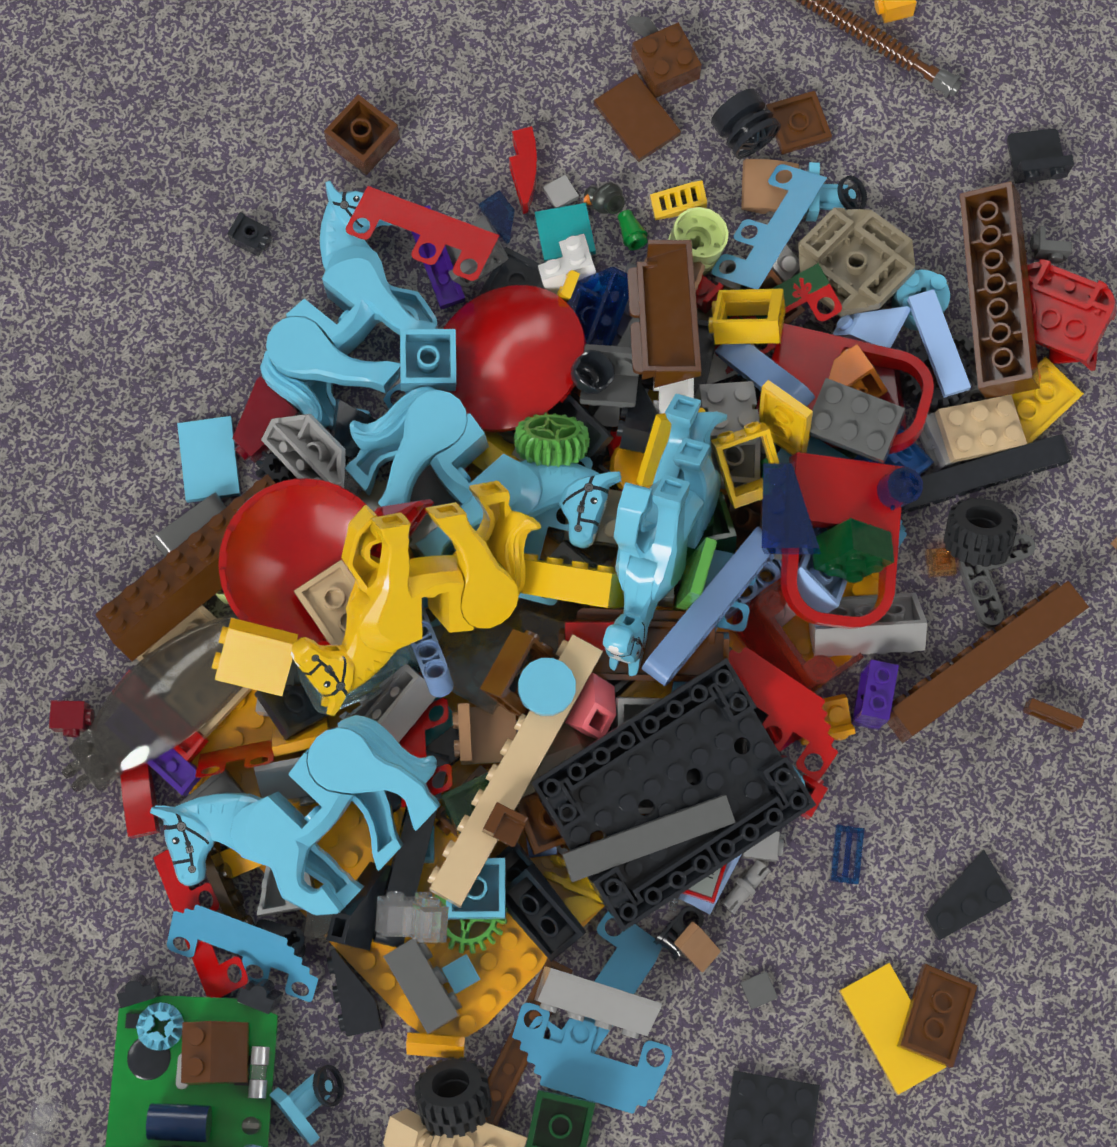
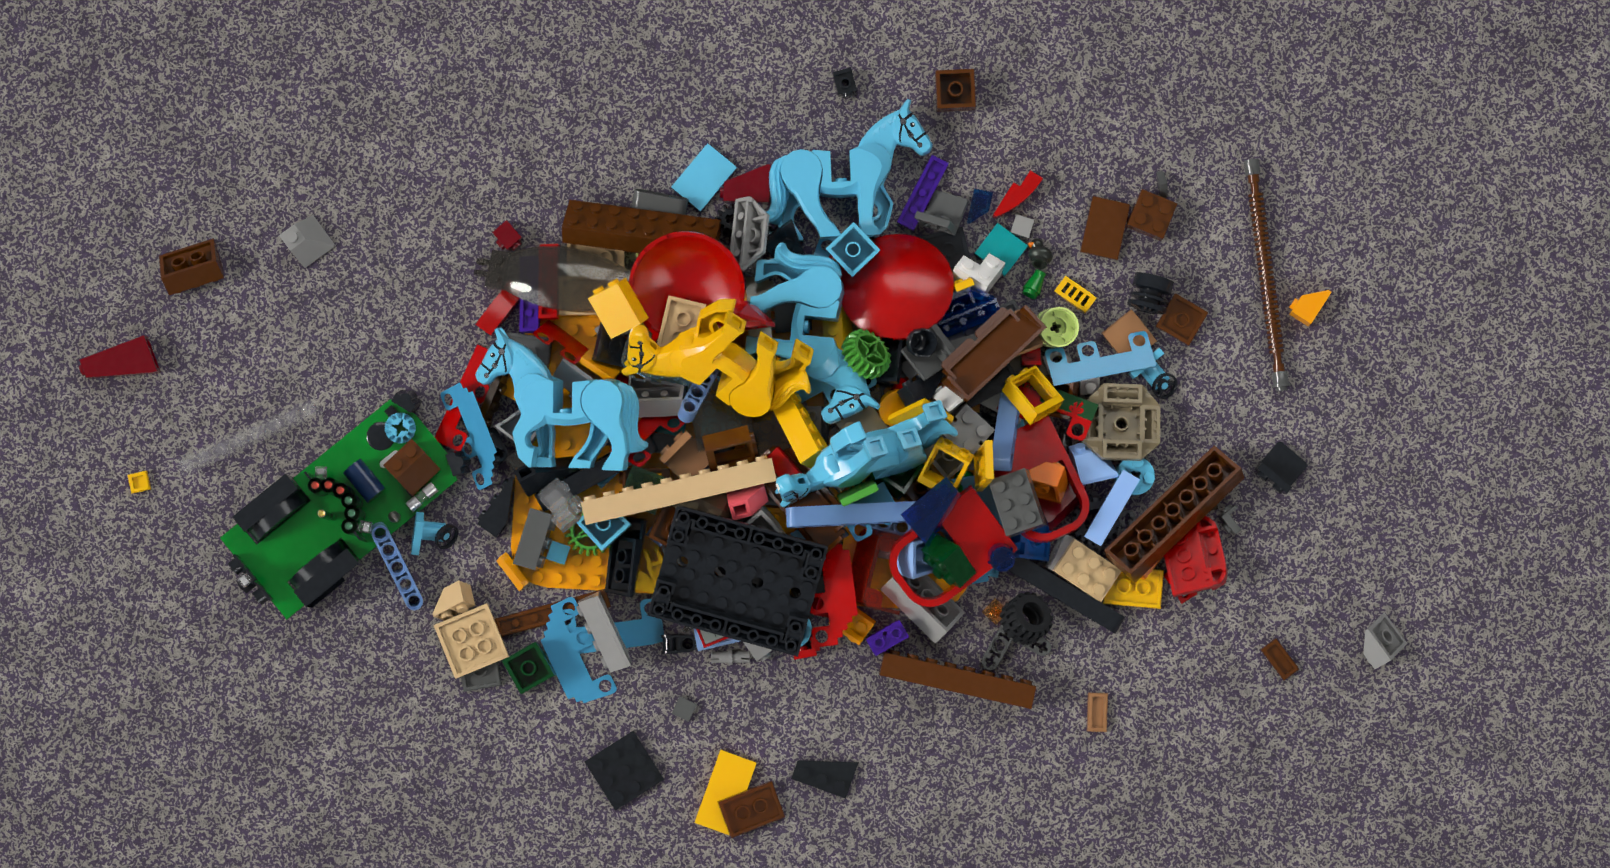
camera: 55 degrees right, 10 degrees up
(431, 225) = (932, 180): red piece -> none
(453, 1097) = (488, 612): black tyre -> none
(505, 824) = (643, 511): reddish brown panel -> none
(546, 686) = (732, 469): medium azure tile -> none
(648, 838) = (704, 587): dark grey tile -> none
(697, 947) = (676, 658): medium nougat tile -> none
(847, 852) = (780, 703): clear blue tile -> none
(1053, 715) = (962, 739): reddish brown tile -> none

